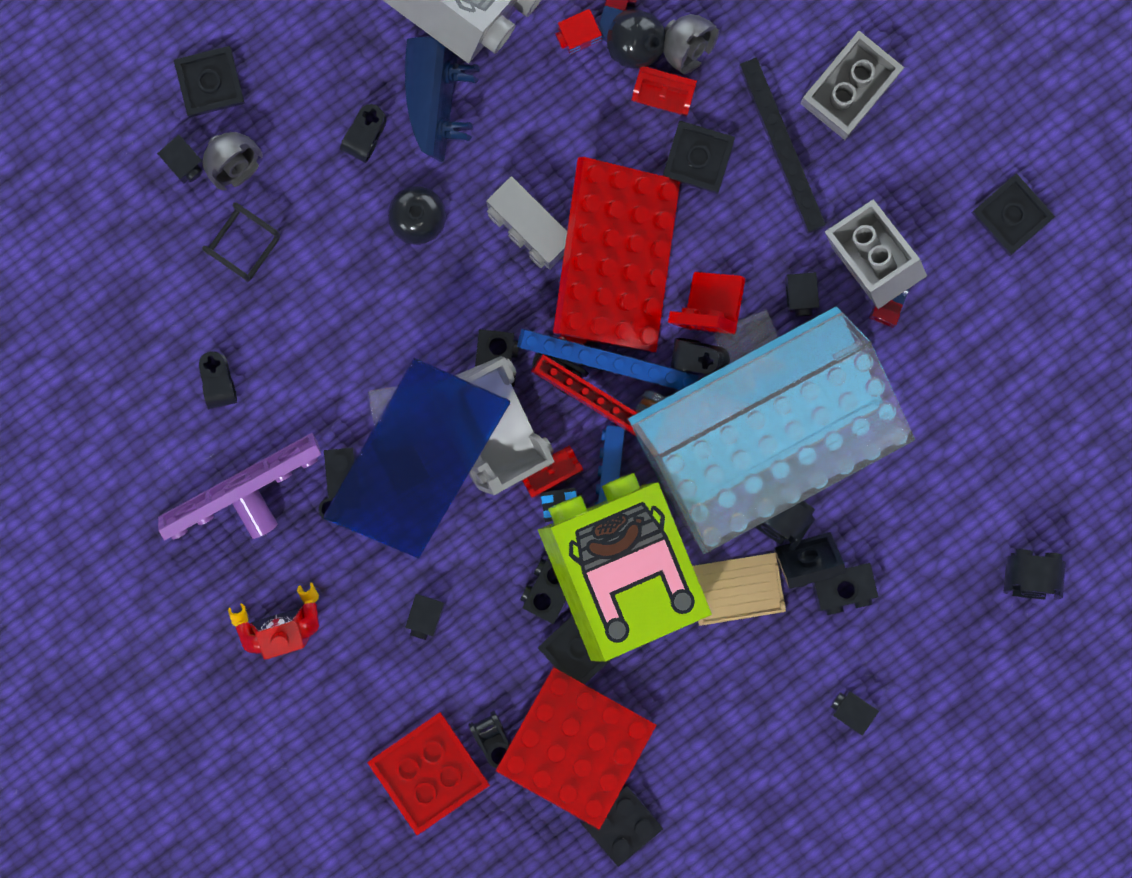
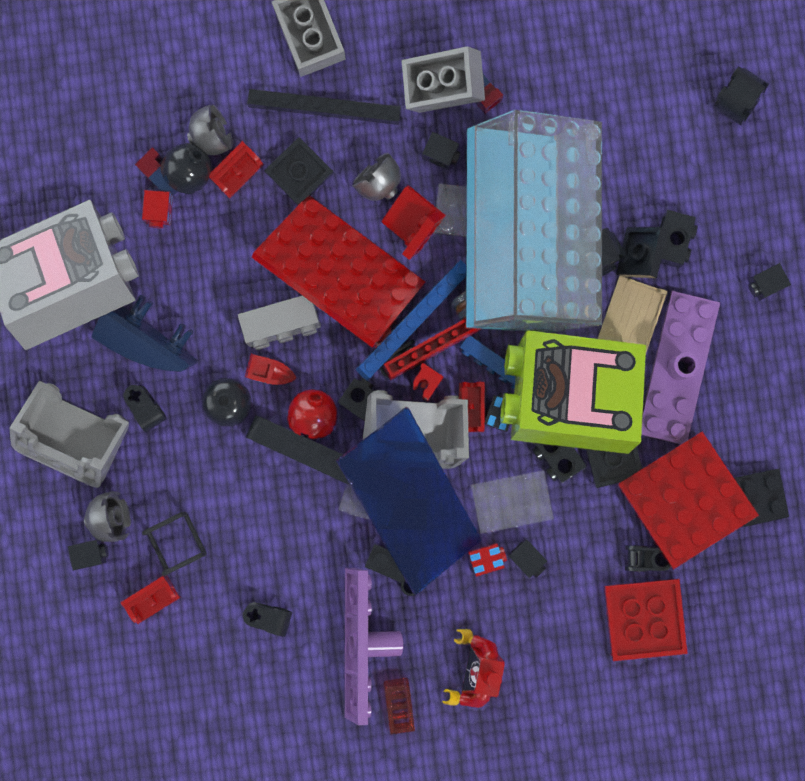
camera: 60 degrees left, 0 degrees up
(170, 250) = (150, 599): none -> red hinge
(209, 81) = (40, 502): black plate -> none
(218, 550) = (394, 686): none -> clear red slope
(291, 71) = (67, 436): none -> light grey windscreen
(401, 574) = (487, 559): none -> red brick
(408, 310) = (296, 447): none -> black beam
(452, 310) = (312, 414): none -> red cylinder
(473, 240) = (268, 370): none -> red plate
(475, 567) = (512, 502): none -> clear plate
(553, 413) = (428, 377): none -> red hinge
(678, 676) = (671, 393): none -> medium lavender plate
(695, 356) = (444, 254): black piece -> none
(735, 244) = (379, 179): none -> flat silver cylinder

